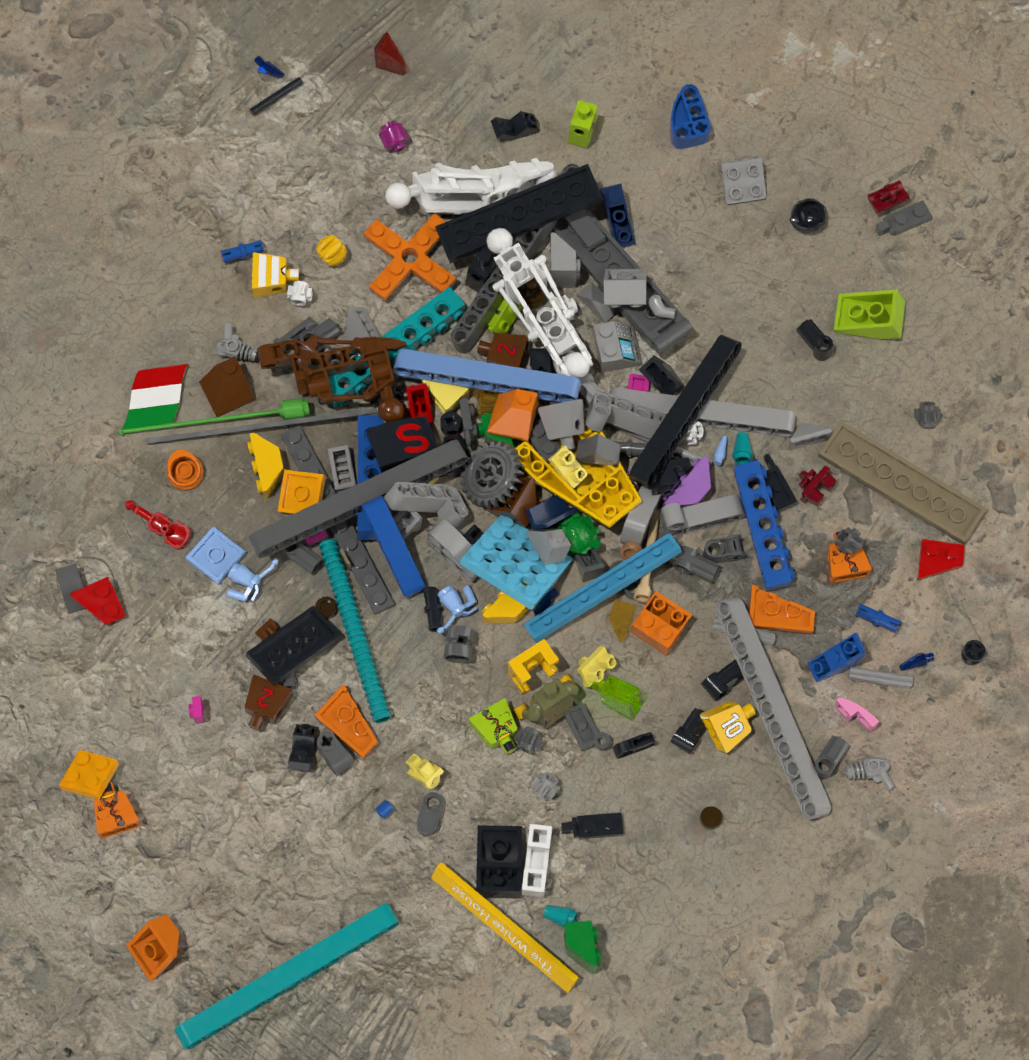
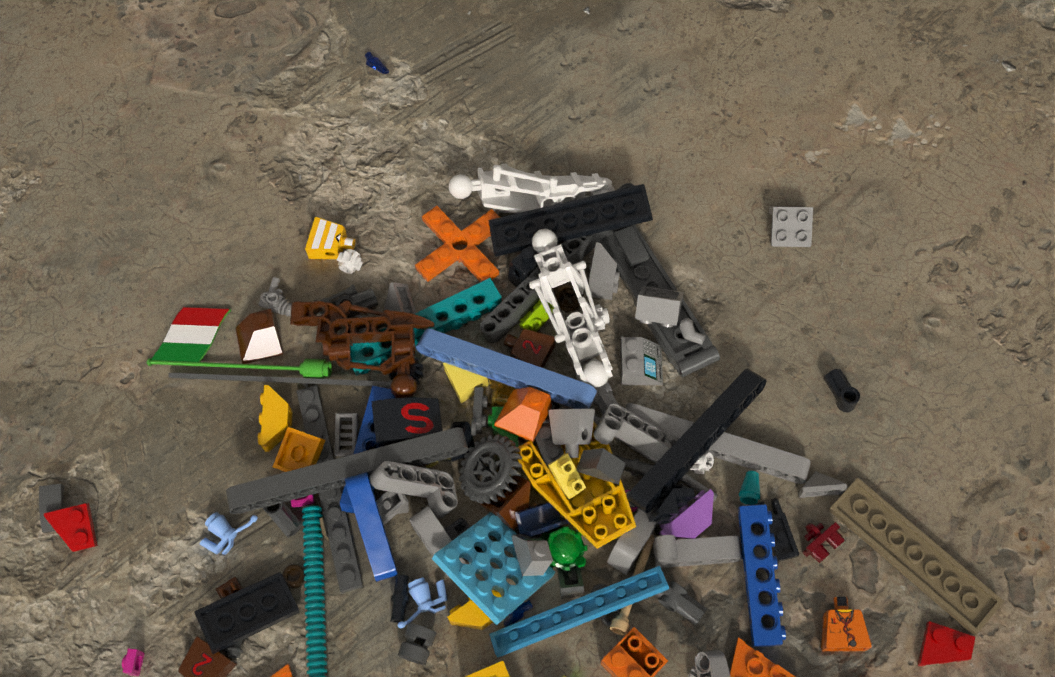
camera: 15 degrees right, 5 degrees down
(175, 534) = (168, 471): red piece -> none
(184, 470) = (195, 409): orange piece -> none
(215, 555) = (200, 500): light blue tile -> none
(242, 251) = (307, 215): blue pin -> none
(276, 96) = (375, 88): black bar -> none
(331, 250) = (389, 227): yellow piece -> none
(388, 57) = (481, 67): clear red slope -> none
(393, 136) = (471, 136): magenta head -> none
(418, 401) = (436, 383): red slope -> none
(449, 428) = (463, 414): black wheel -> none
(519, 126) = (588, 146): black slope -> none
(540, 359) = (563, 363): black piece -> none
(585, 120) = (650, 145): lime torso -> none
(594, 300) = (626, 313): light grey slope -> none
(617, 214) = (664, 238): dark blue slope -> none
(620, 617) = (593, 646): clear yellow slope -> none
(629, 549) = (615, 574): medium nougat tile -> none
(638, 382) = (656, 402): dark pink tile -> none
(661, 375) = (680, 399): black slope -> none
(682, 122) = (742, 165): blue beam -> none
(720, 452) = (727, 487): light blue piece -> none
(727, 547) = (719, 592): dark grey piece -> none
(808, 215) = (851, 268): black hair -> none
(849, 540) = (852, 612): dark grey gear -> none
(870, 314) = (901, 374): lime slope -> none
(888, 197) = (932, 264): dark red hips -> none
(904, 219) = (945, 288): dark grey hinge -> none
(927, 413) = (949, 486): dark grey gear -> none

